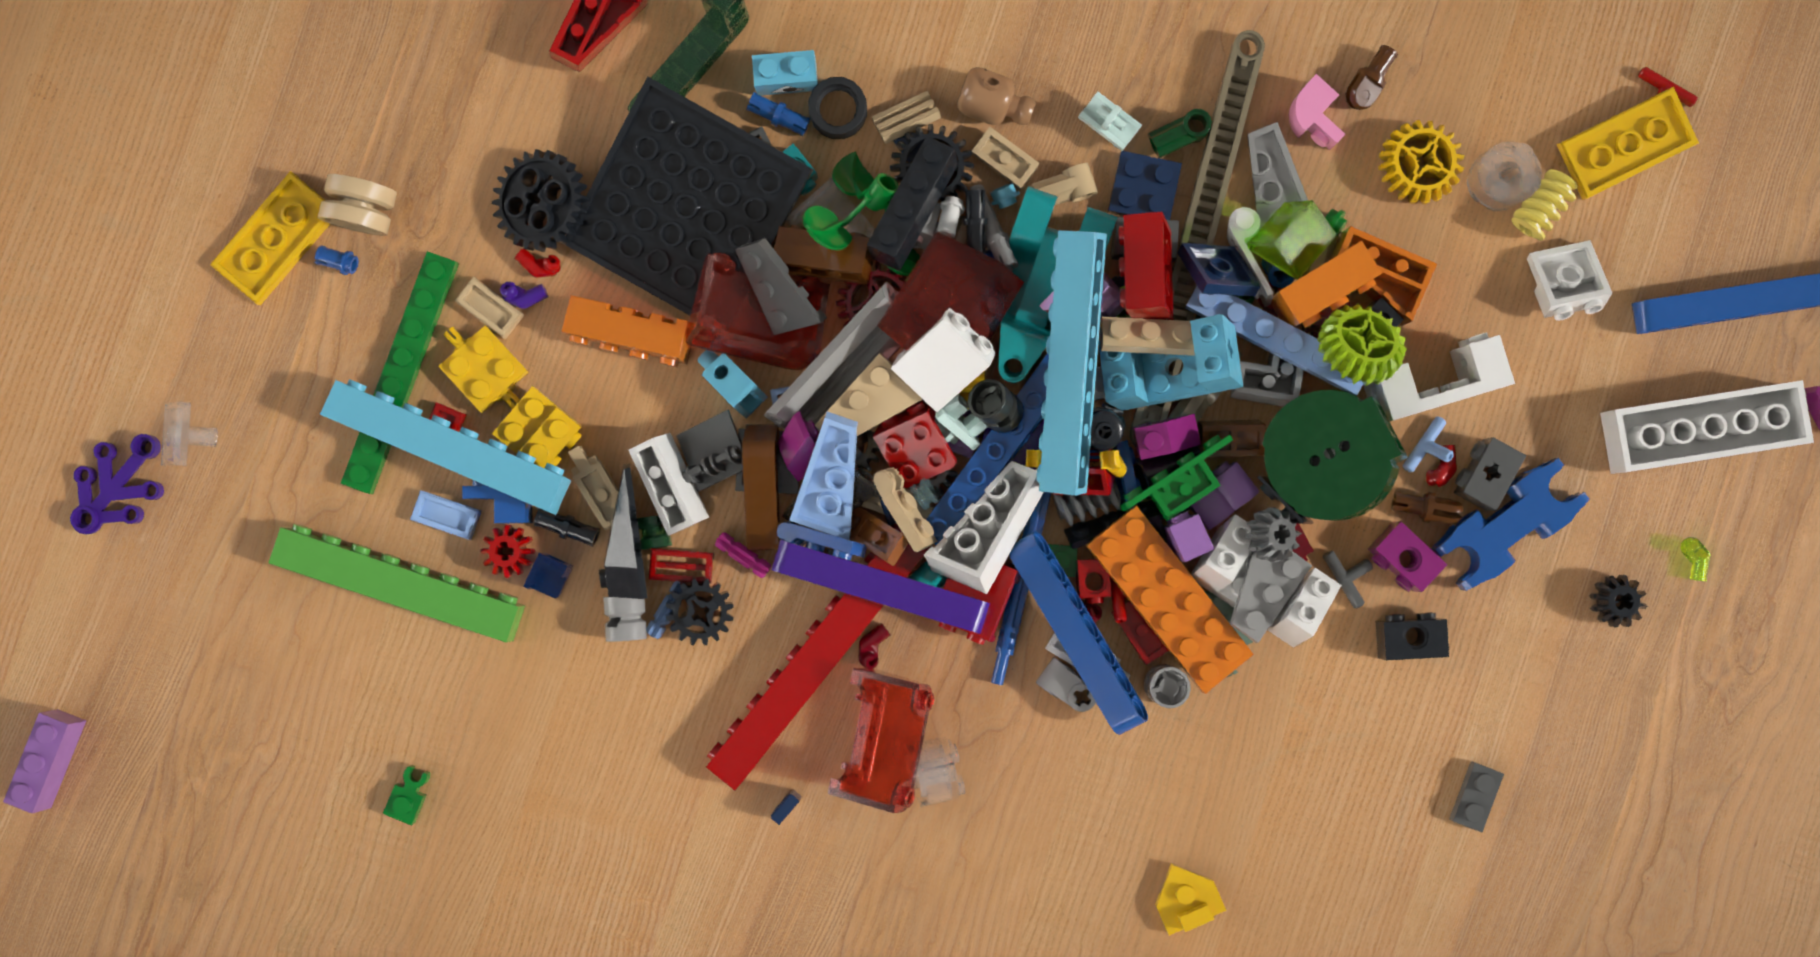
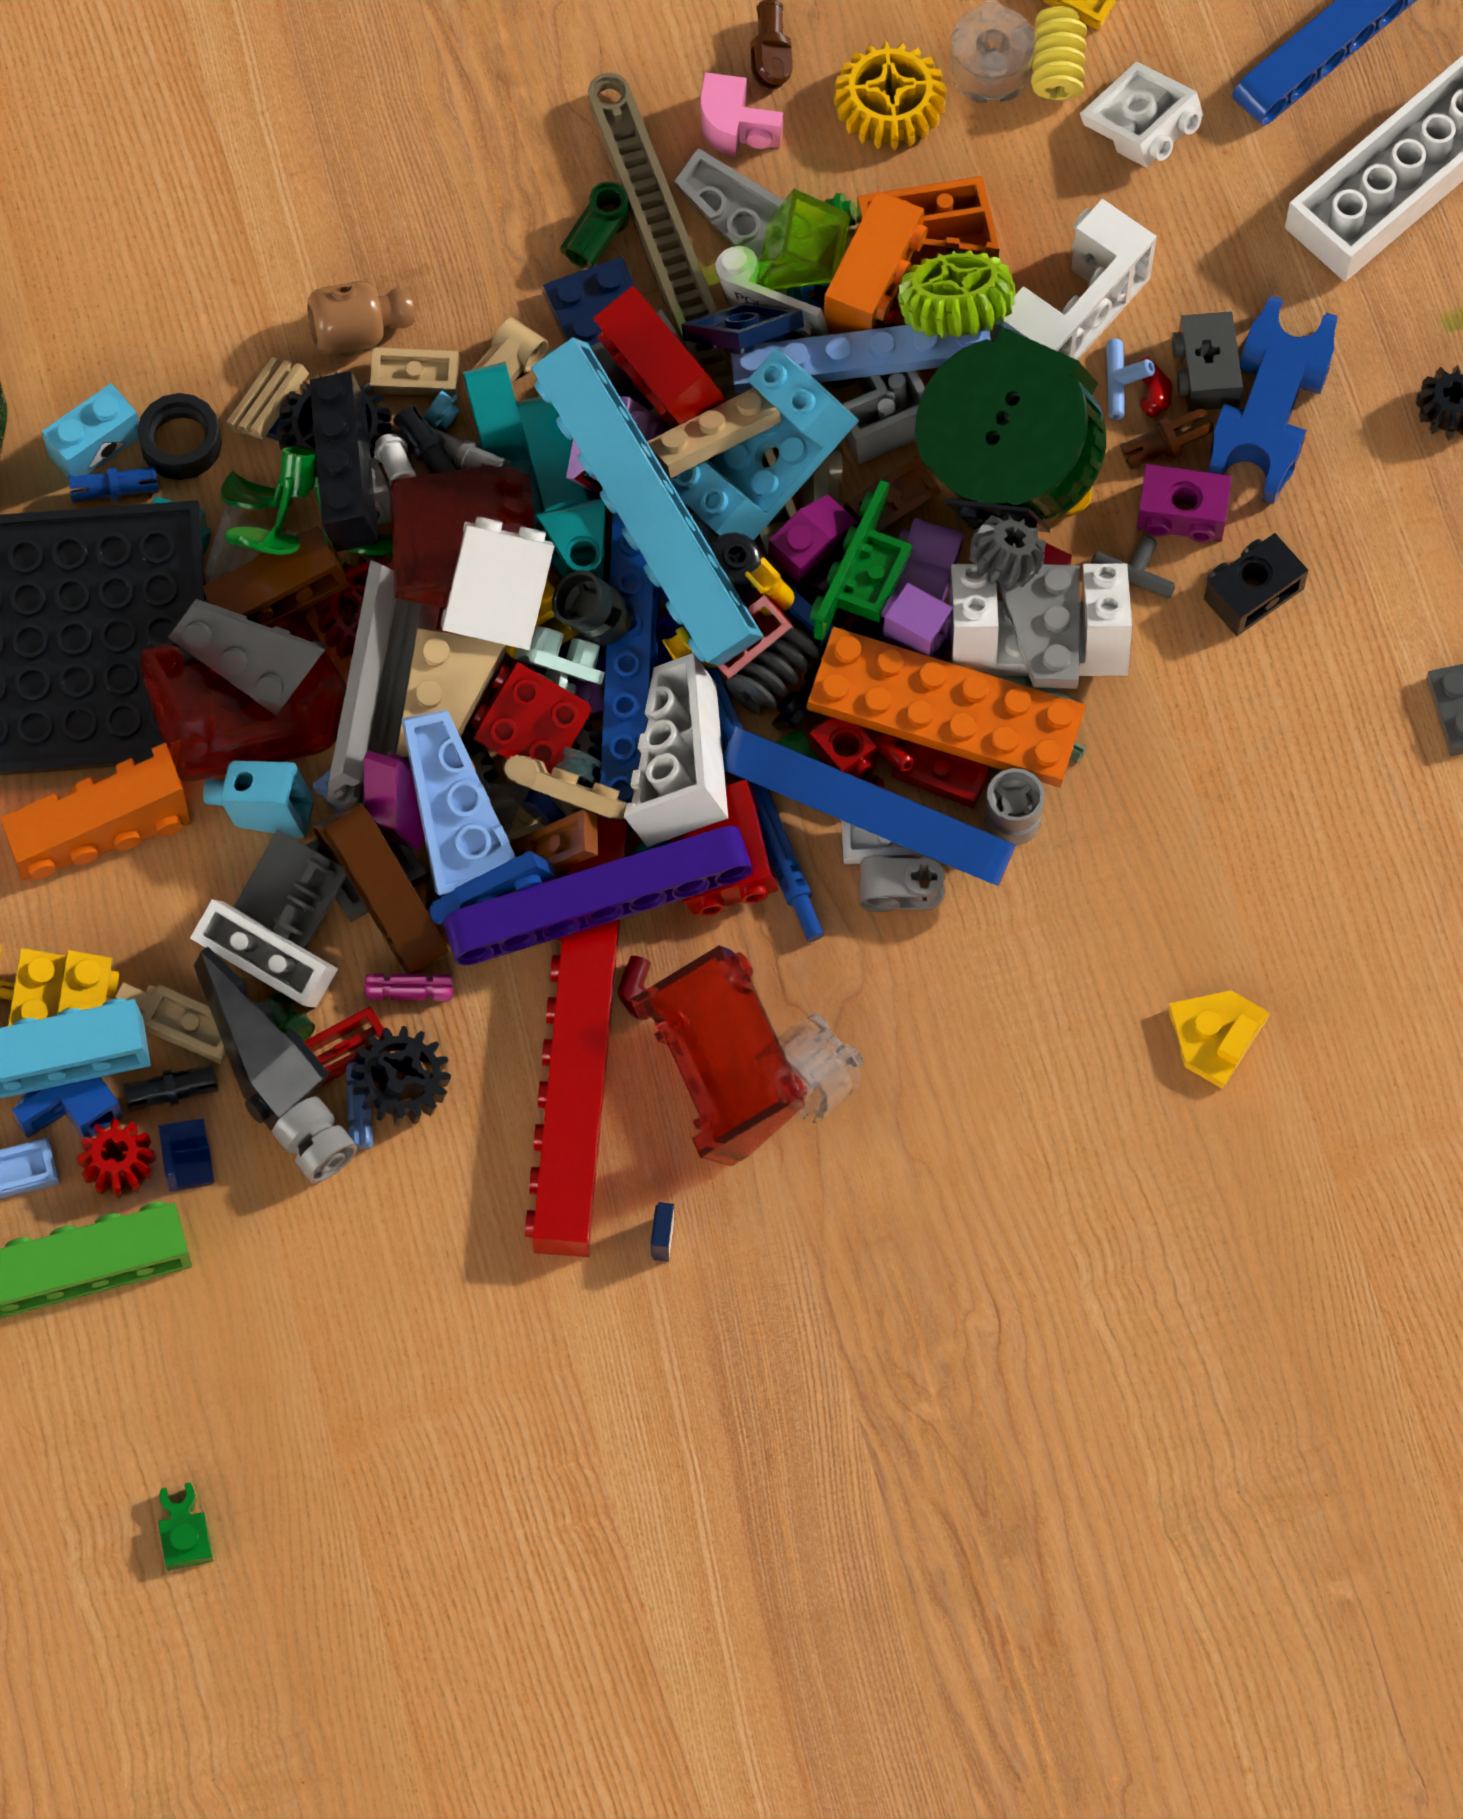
camera: 40 degrees left, 20 degrees down
(1109, 121) = (507, 260): light aqua hips -> none

